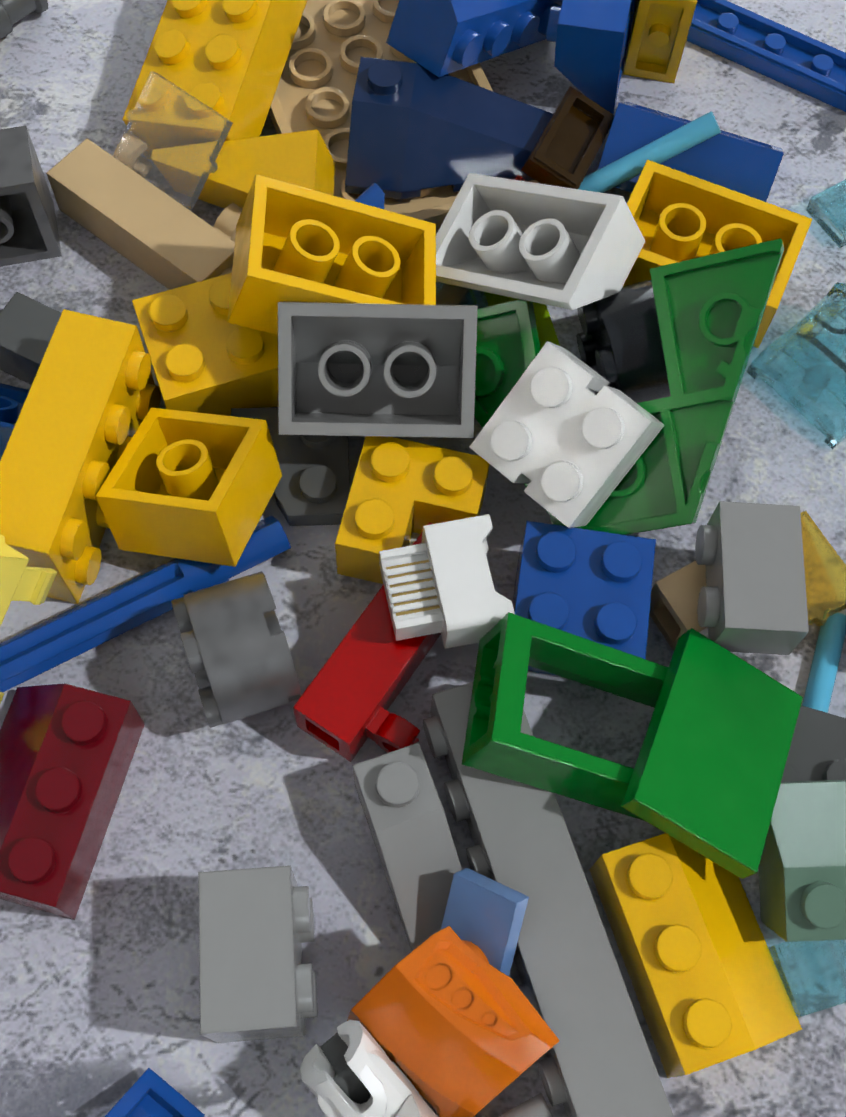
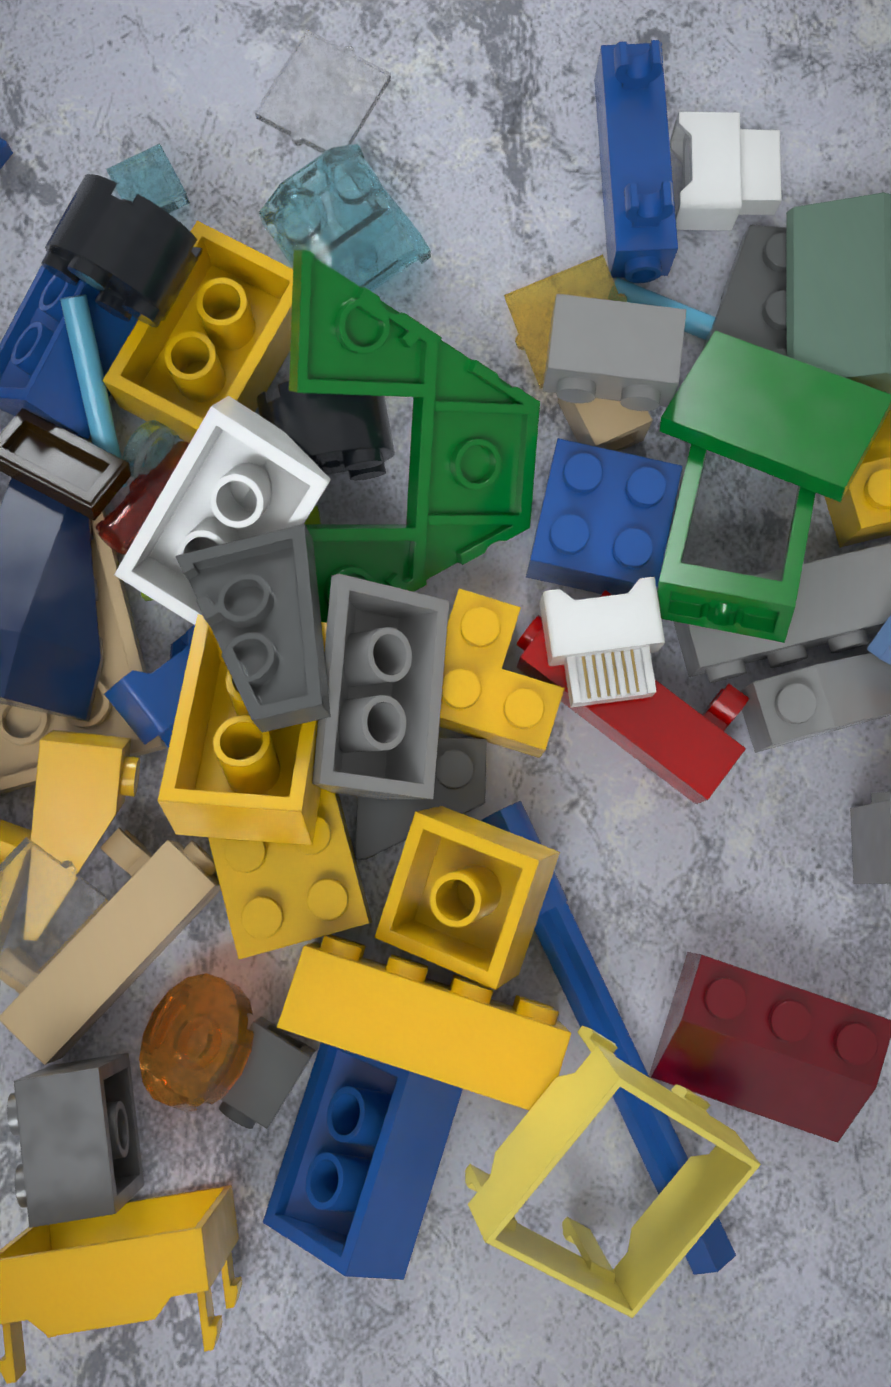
camera: 85 degrees left, 15 degrees up
(61, 282) = (196, 1042): none -> clear orange tile
(236, 649) = (646, 852): flat silver brick -> none
(425, 261) = (267, 622): none -> dark grey wing
(565, 436) = (459, 514): white piece -> none
(759, 140) = (123, 250): none -> black brick

